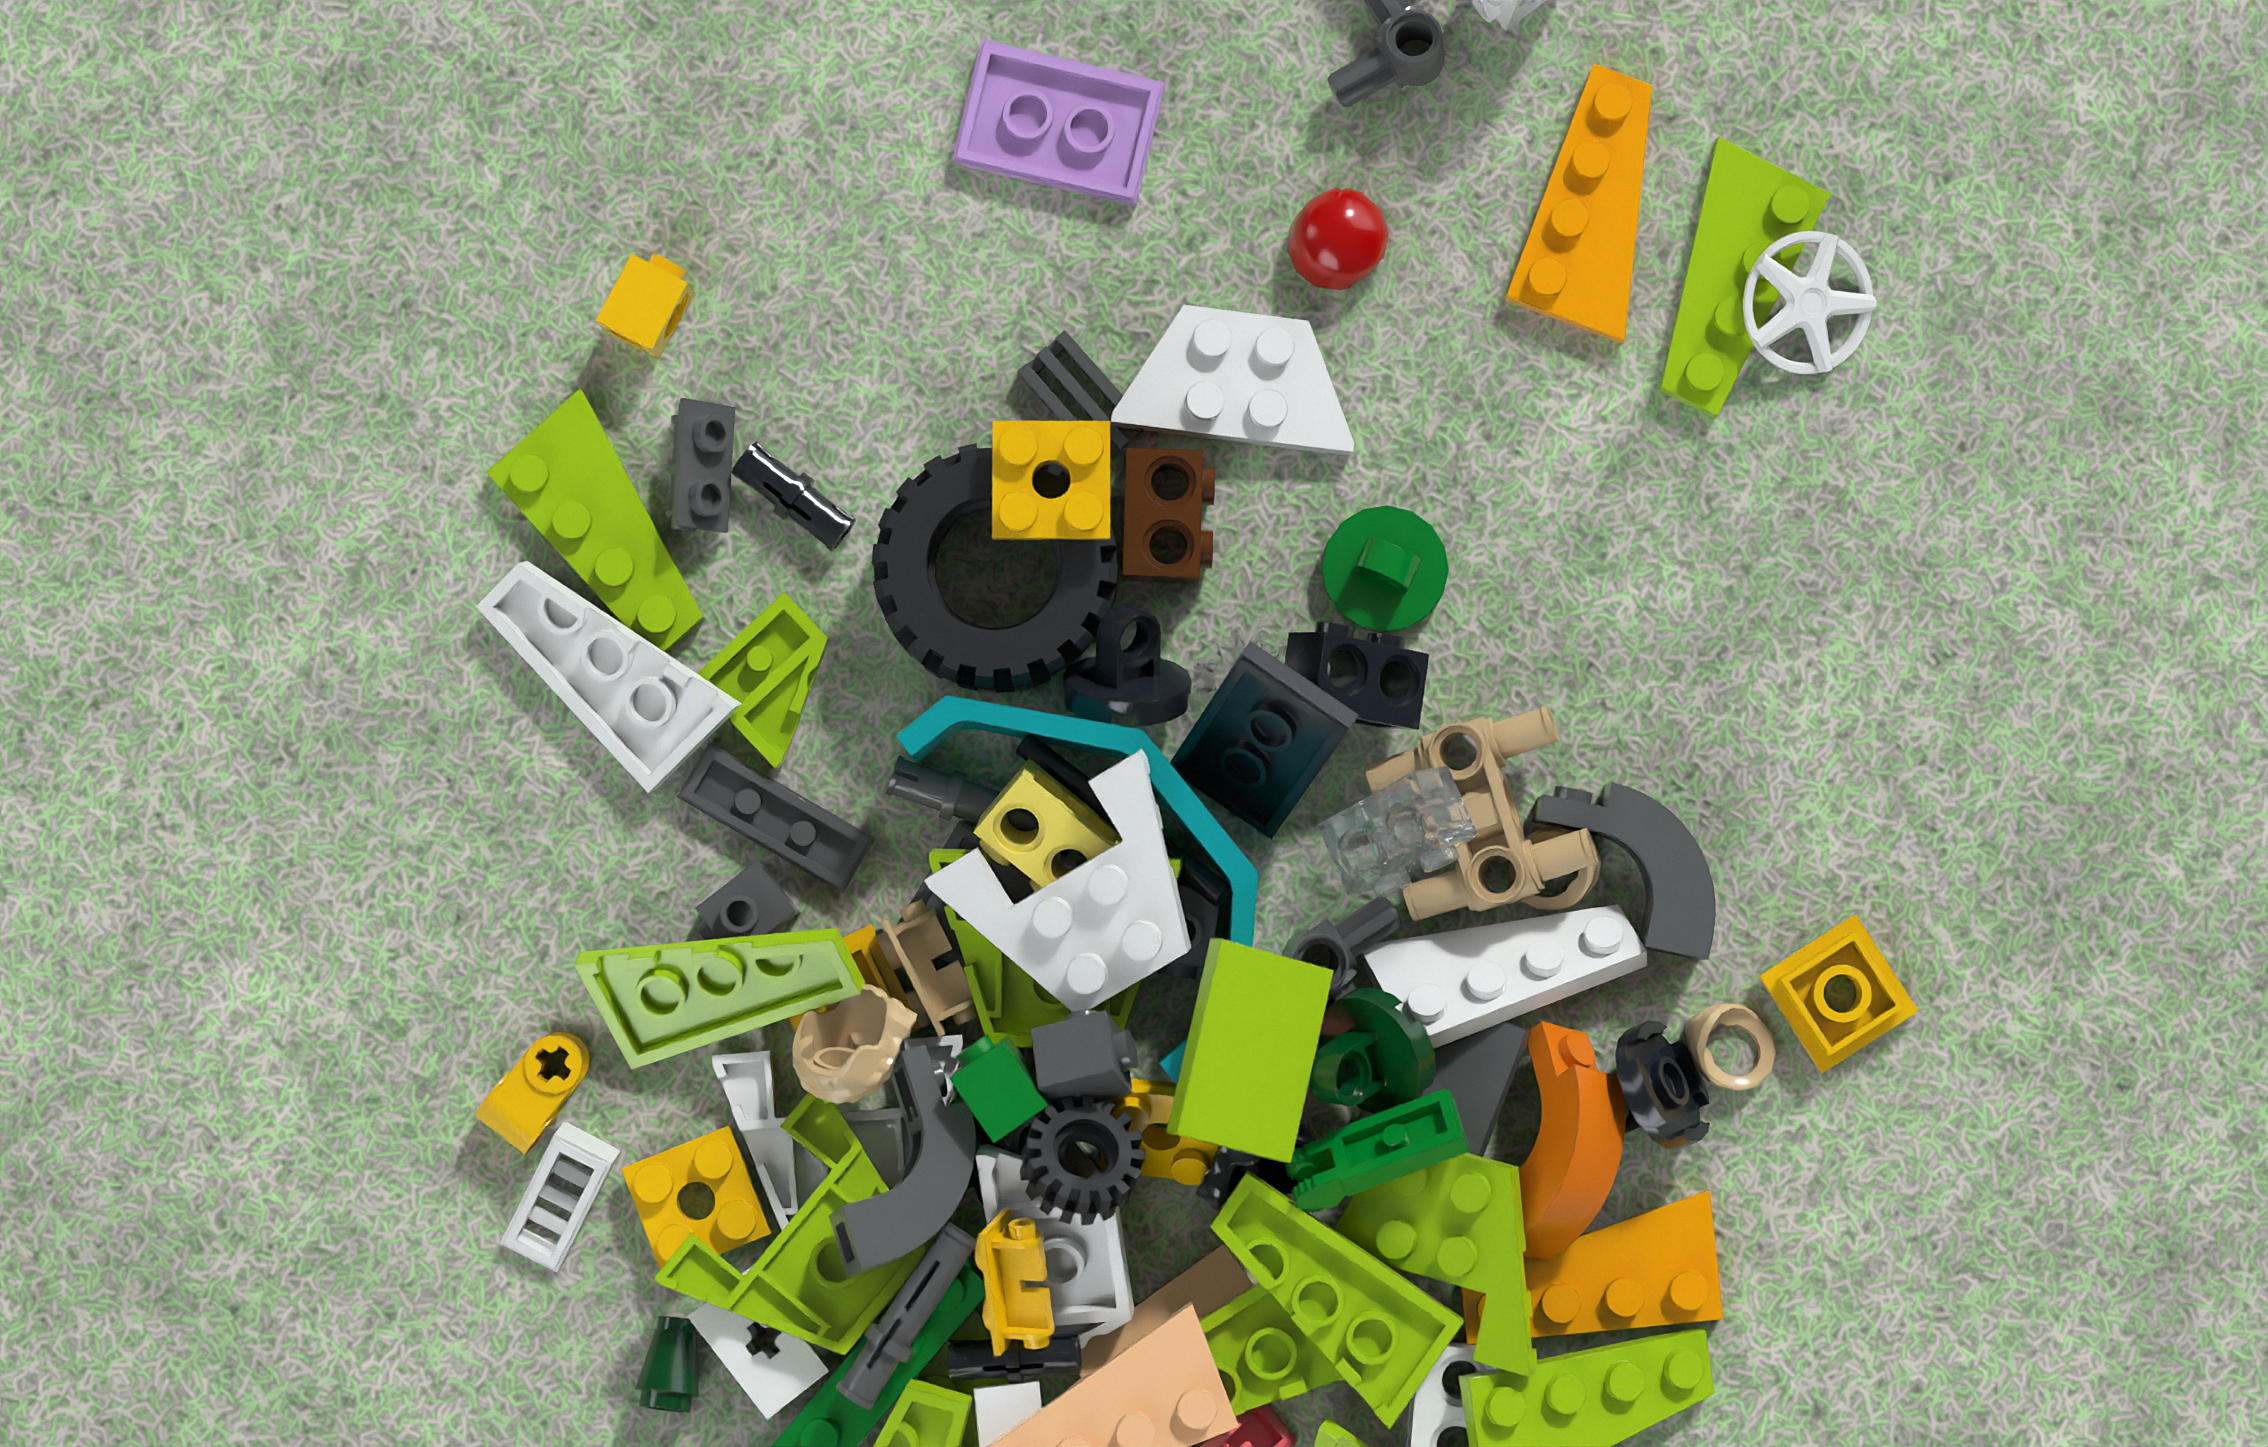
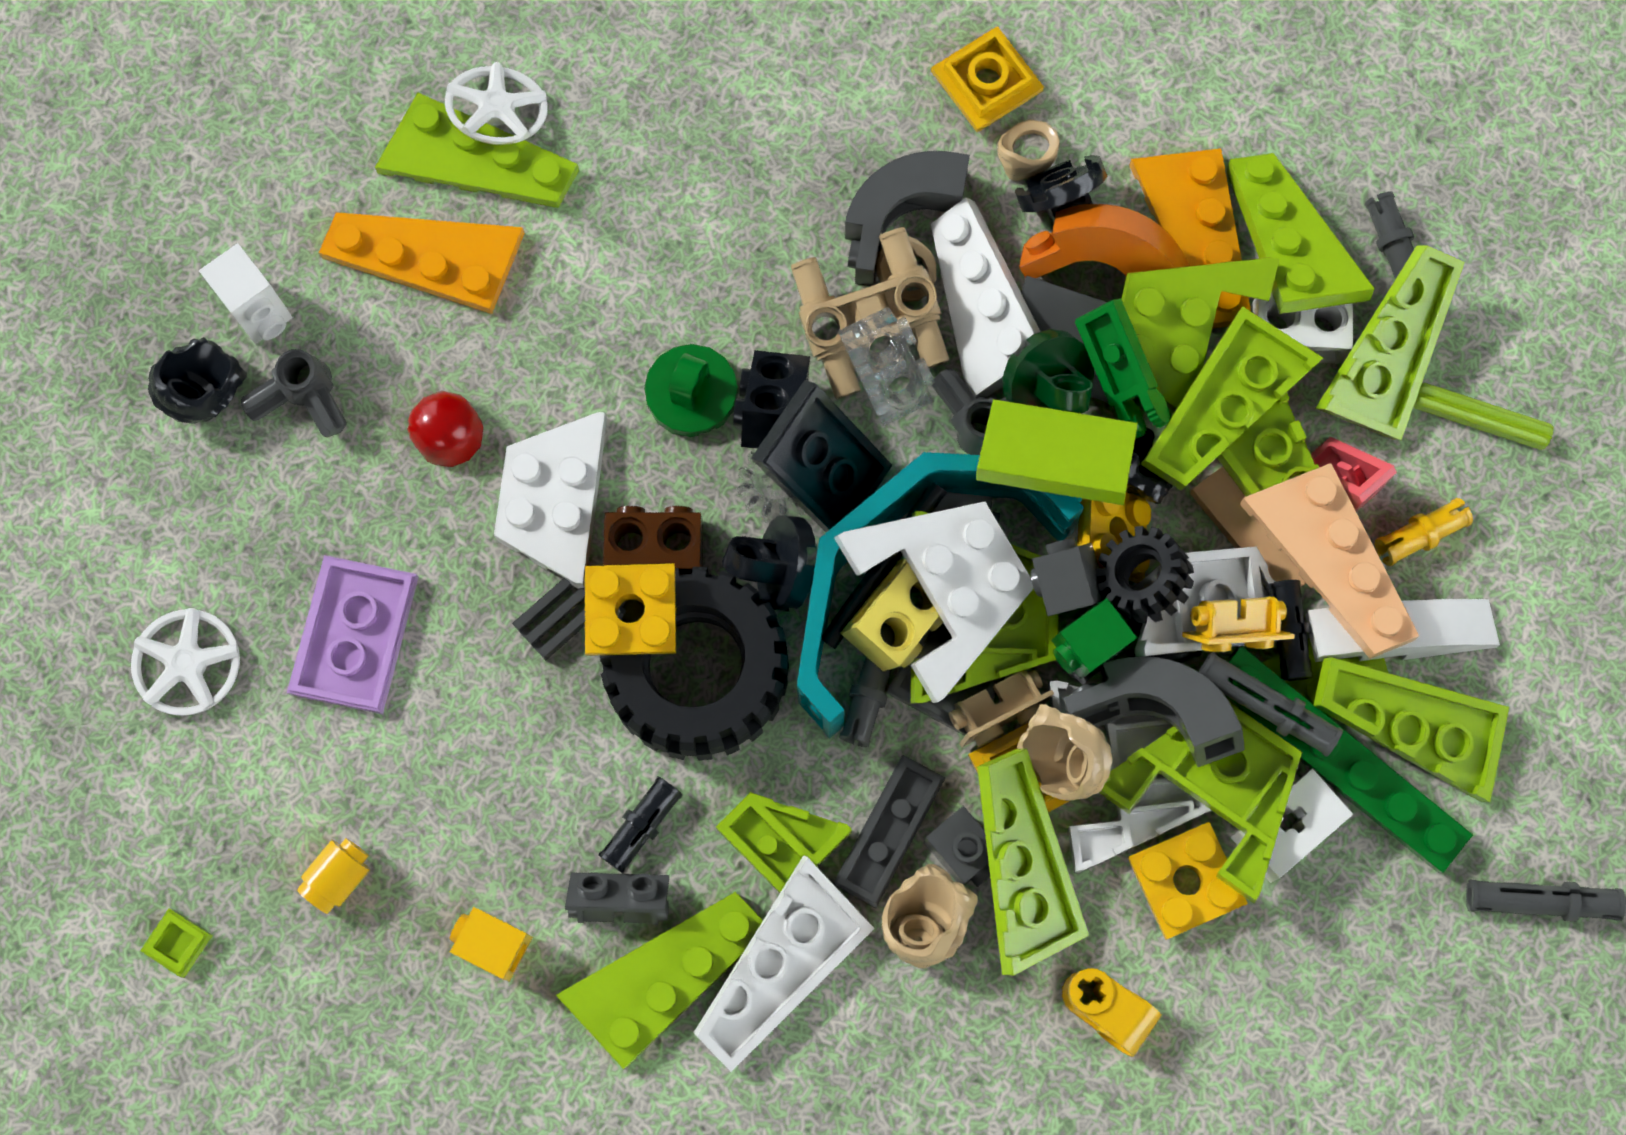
camera: 85 degrees left, 10 degrees down
(589, 1152) = (1152, 971): white slope -> none
(668, 860) = (927, 917): none -> tan hair
(670, 1367) = (1316, 896): dark green cone -> none
(740, 106) = (334, 875): none -> yellow brick

